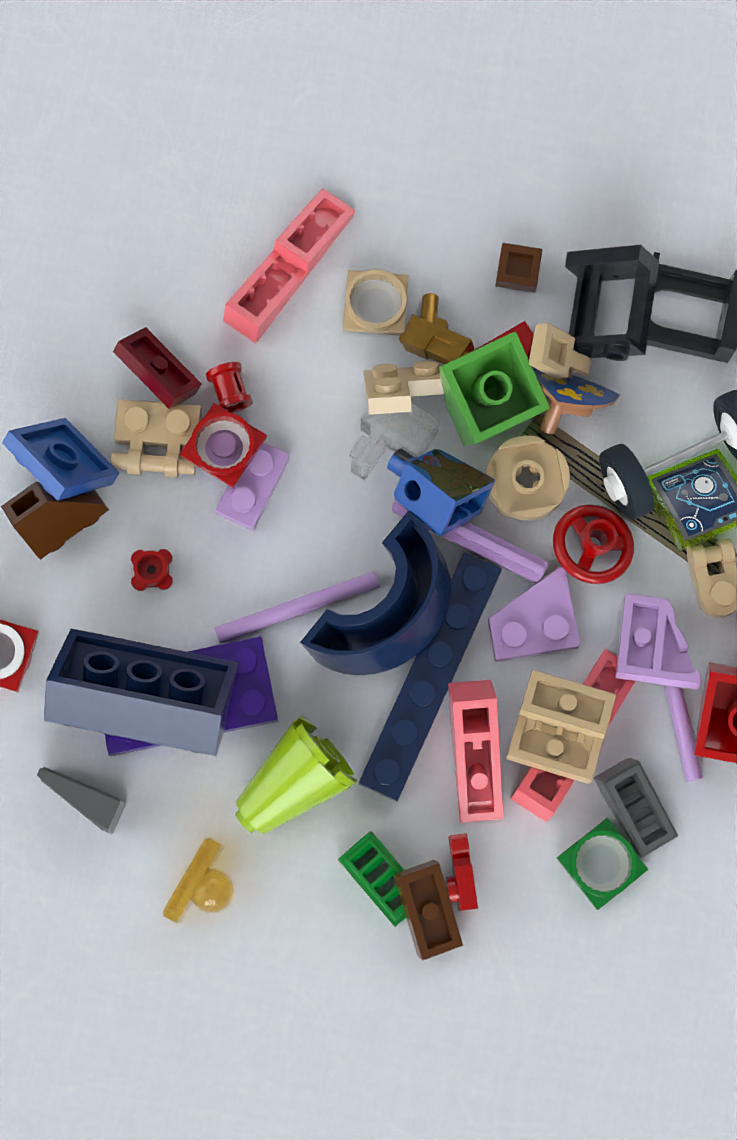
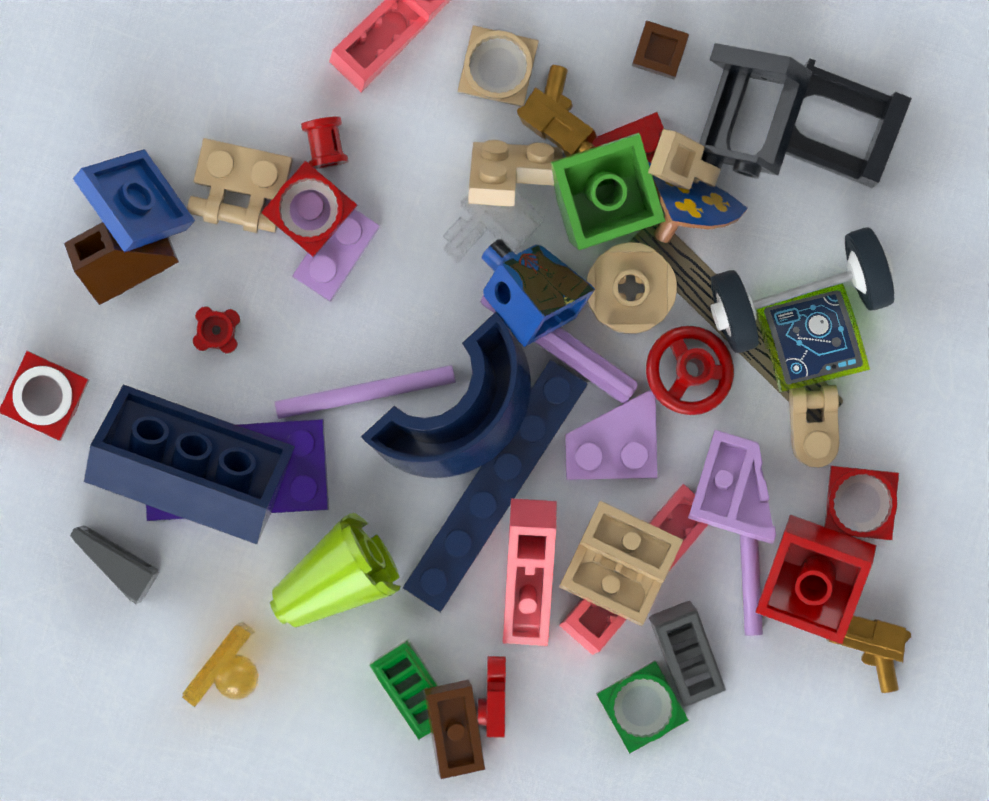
camera: 10 degrees right, 10 degrees up
(157, 367) = (249, 109): dark red plate -> none

